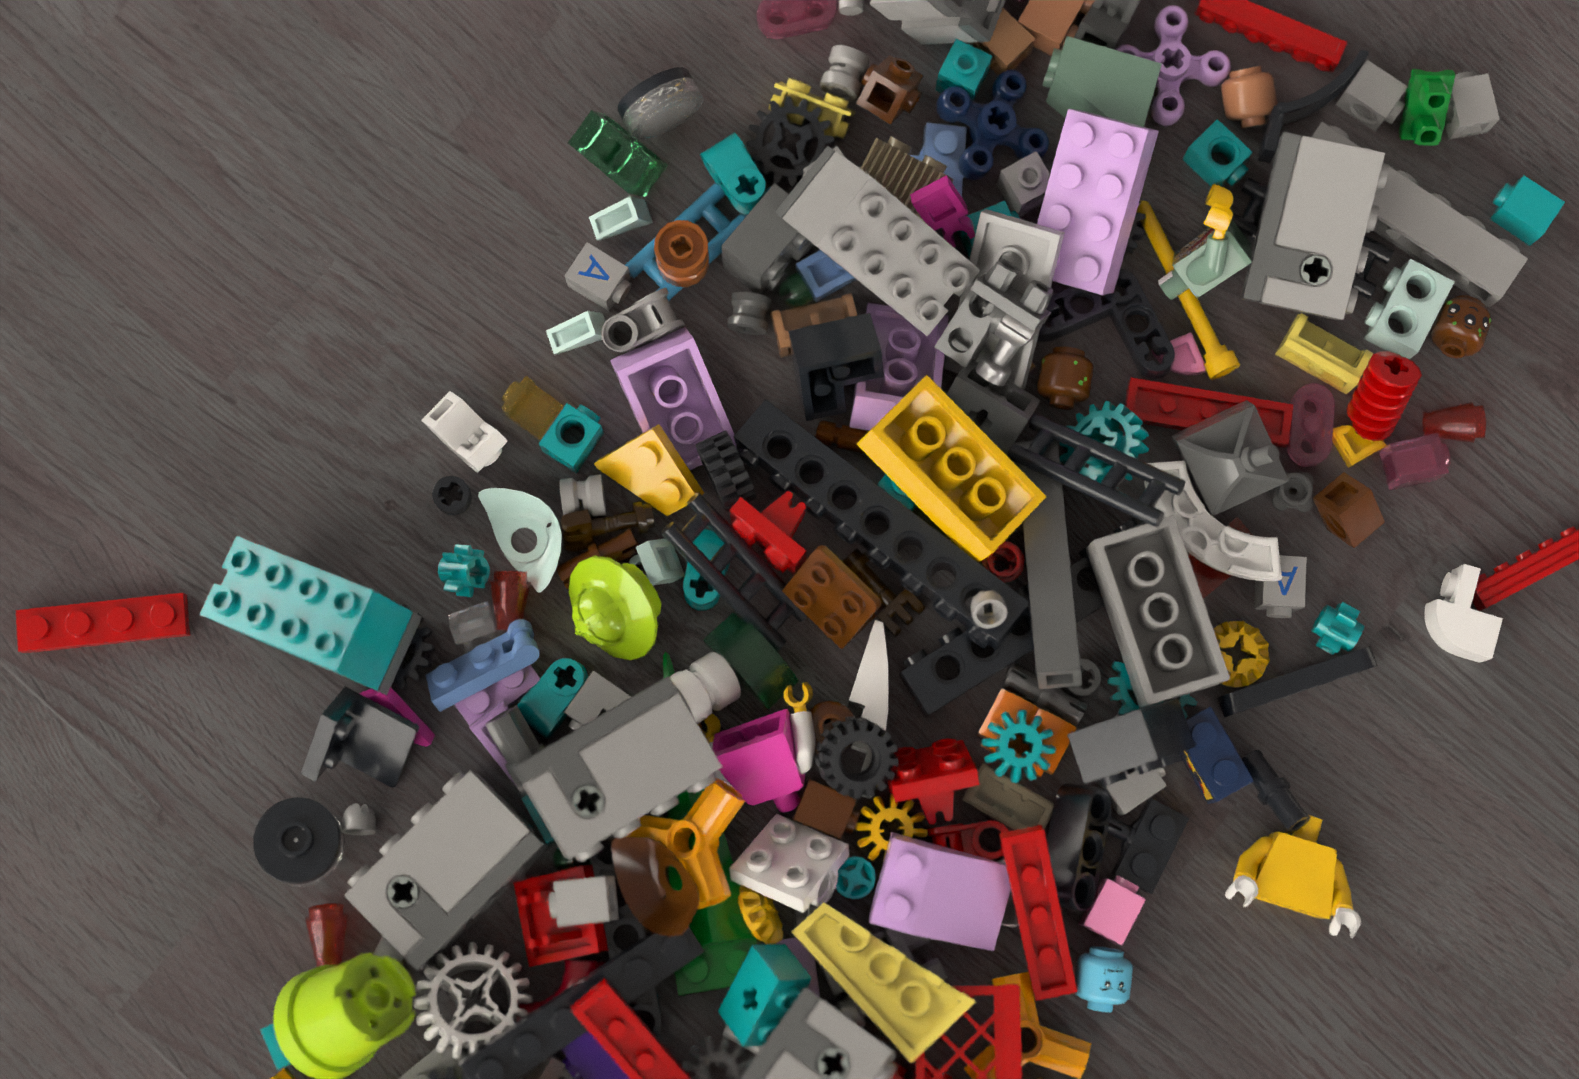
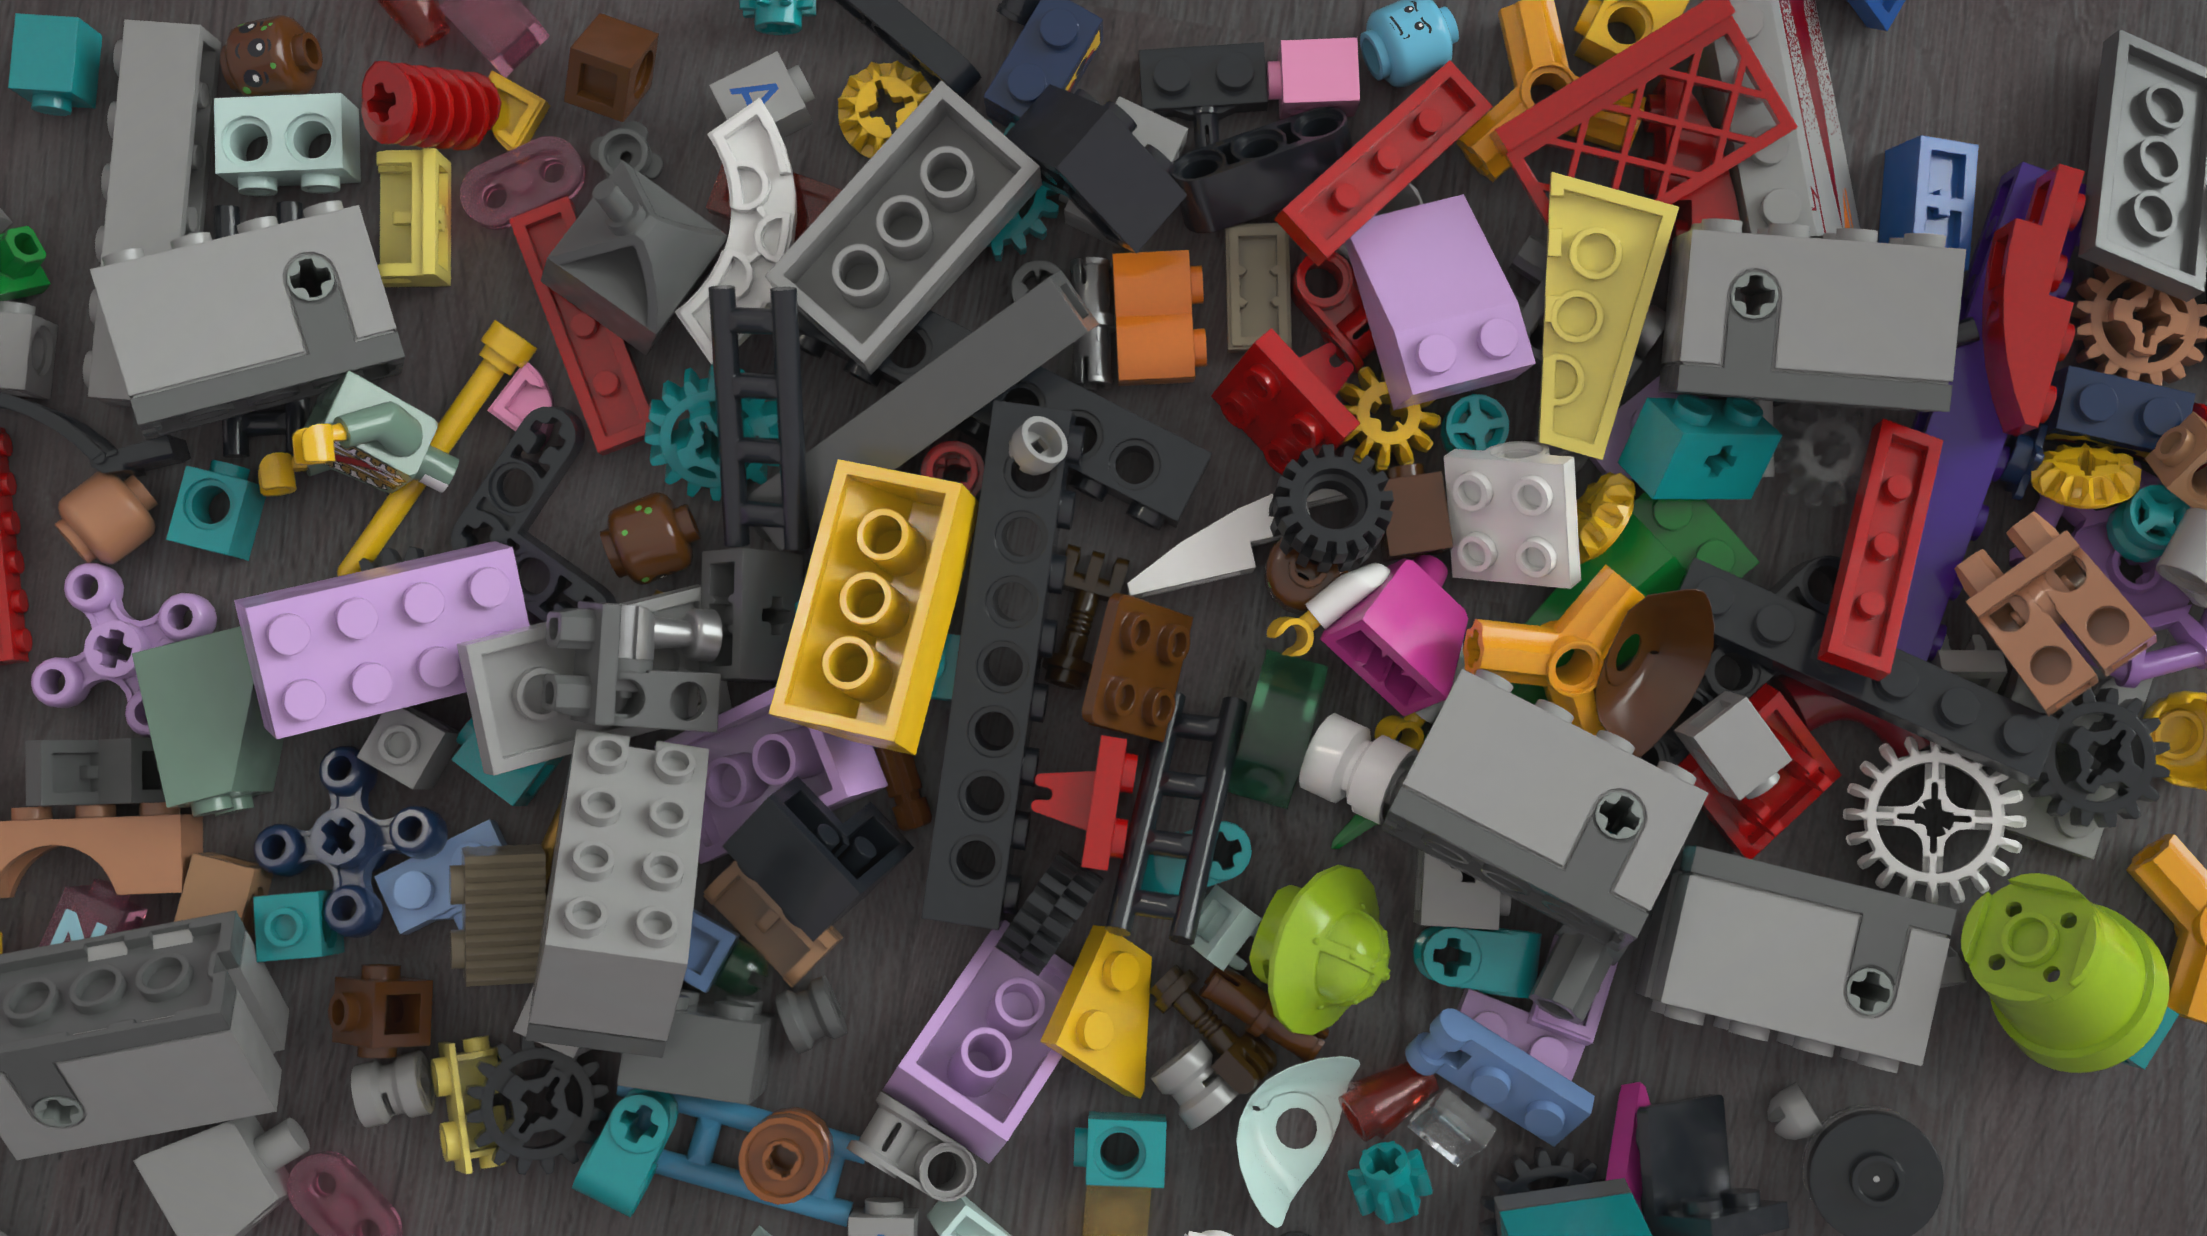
camera: 115 degrees left, 5 degrees up
(327, 932) = (1961, 1063): clear red cone -> none
(943, 207) = (514, 832): dark pink plate -> none
(1029, 736) = (1197, 287): teal gear -> none

